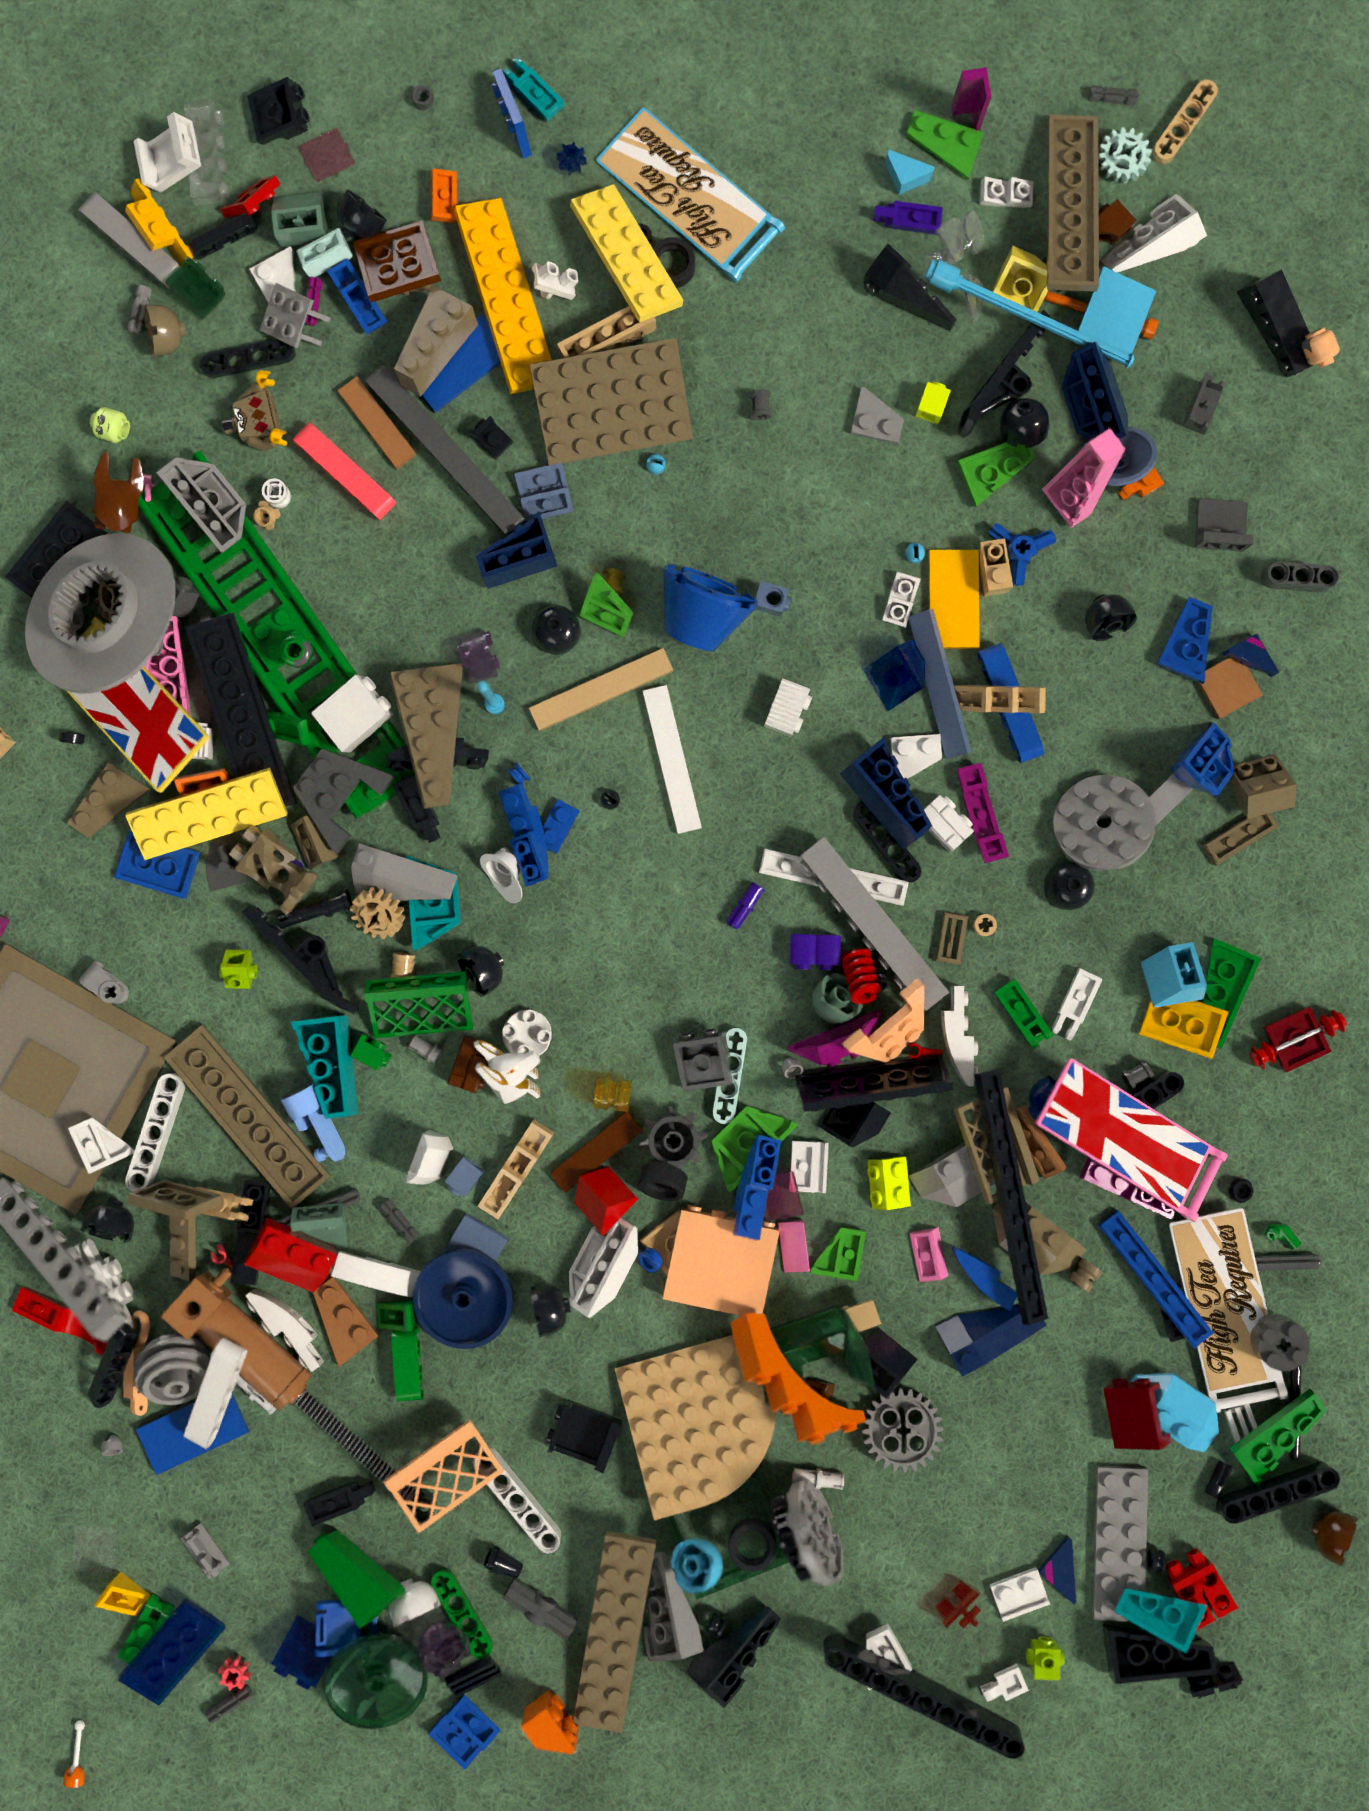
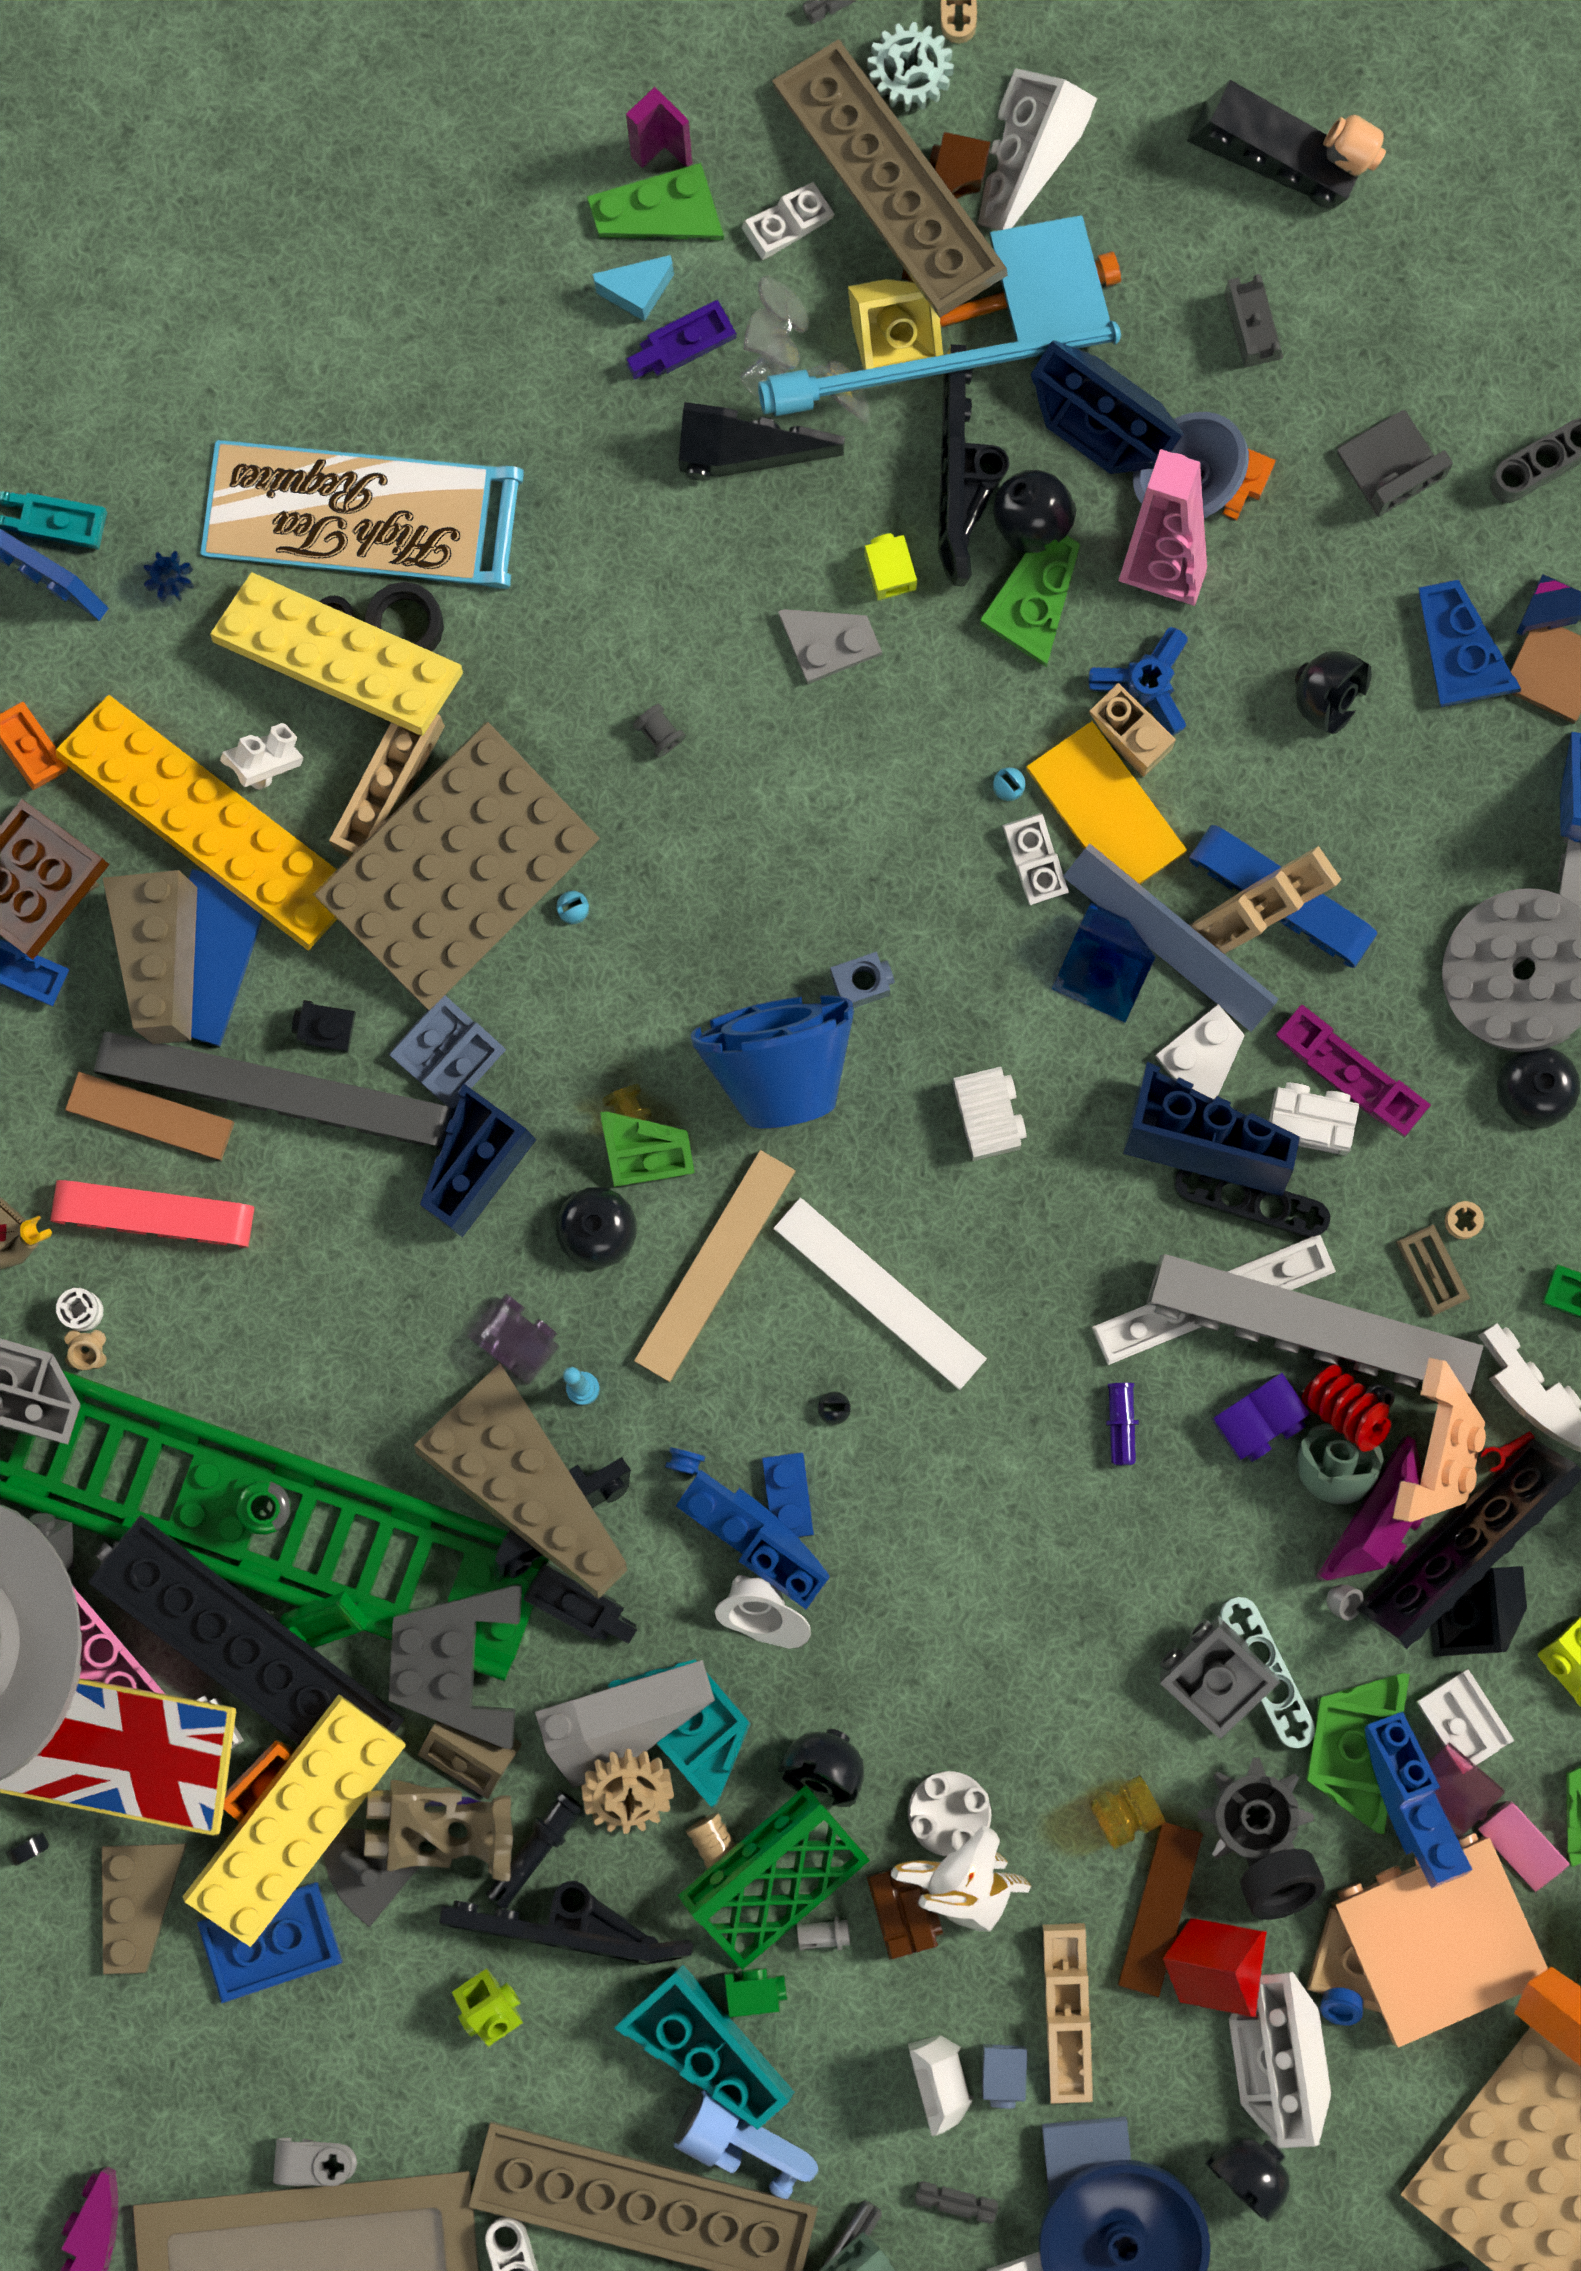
camera: 30 degrees left, 5 degrees down
(353, 713) = (401, 1537): white brick -> none

